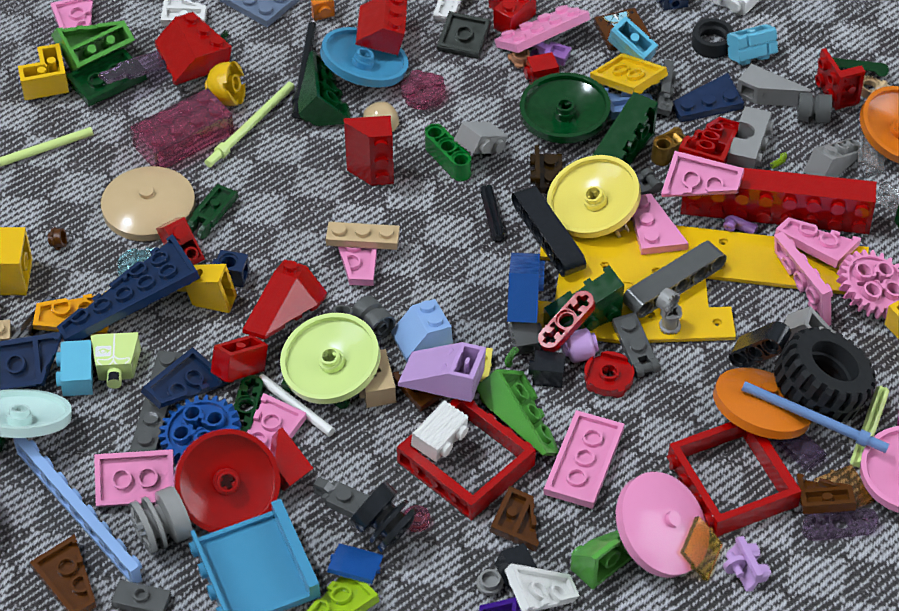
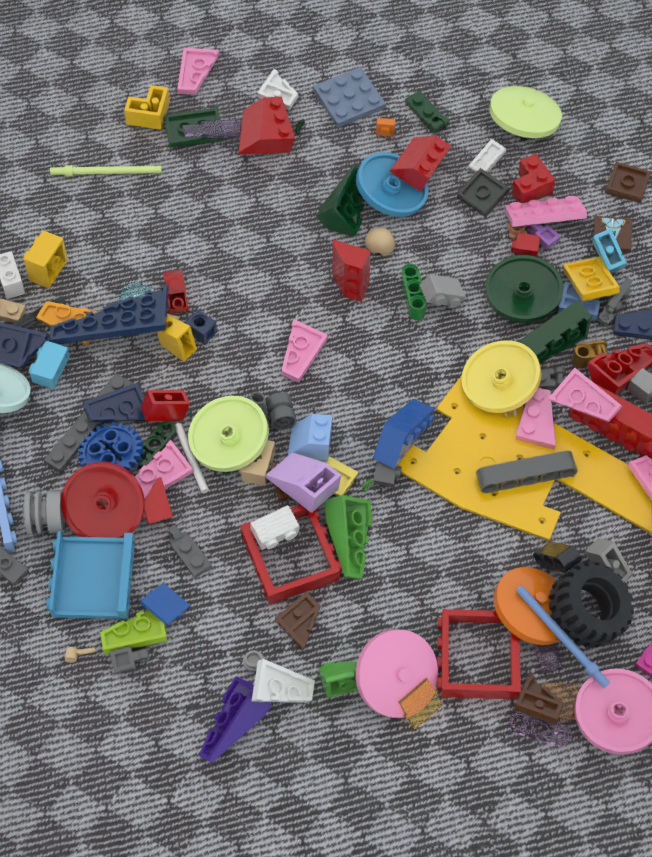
camera: 25 degrees right, 10 degrees up
(57, 238) = (91, 251): reddish brown plate -> none
(90, 43) = (194, 96): bright green wedge -> none
(116, 356) = (82, 366): yellowish green torso -> none
(132, 475) = (43, 468): bright pink plate -> none
(145, 200) = (171, 244): tan dish -> none
(182, 129) = (225, 195): clear pink brick -> none
(212, 210) = (212, 272): dark green hinge -> none
(223, 148) = (248, 222): yellowish green bar -> none
(226, 83) = (276, 169): yellow cylinder -> none
(285, 297) = (227, 367): red wedge -> none
(308, 45) = (357, 158): black bar -> none
(362, 235) = (309, 339): tan plate -> none
(383, 516) = (199, 578): black wheel -> none
(418, 80) = (426, 237): clear pink plate -> none
(421, 519) = (229, 586): clear pink tile -> none
(492, 213) = (420, 357): black axle -> none
(515, 555) = (277, 654): black brick -> none
(545, 169) = (481, 335): dark brown bracket -> none
(547, 369) = (389, 506): black brick -> none
(548, 231) = (452, 391): black beam -> none
(549, 329) = (405, 488): beam -> none
(580, 346) = (423, 498): lavender head -> none
(584, 459) = (375, 592): bright pink plate -> none
(604, 385) = (433, 541): red plate -> none
(608, 299) = (441, 470): dark green wedge -> none
(635, 344) = (467, 514): dark grey plate -> none
(670, 311) = (504, 499): light grey connector -> none
(733, 222) = (611, 447): medium lavender arm -> none
(743, 562) = (444, 730): lavender hips -> none
(805, 277) = (629, 515): bright pink wing -> none
(871, 420) = (616, 653): yellowish green axle -> none

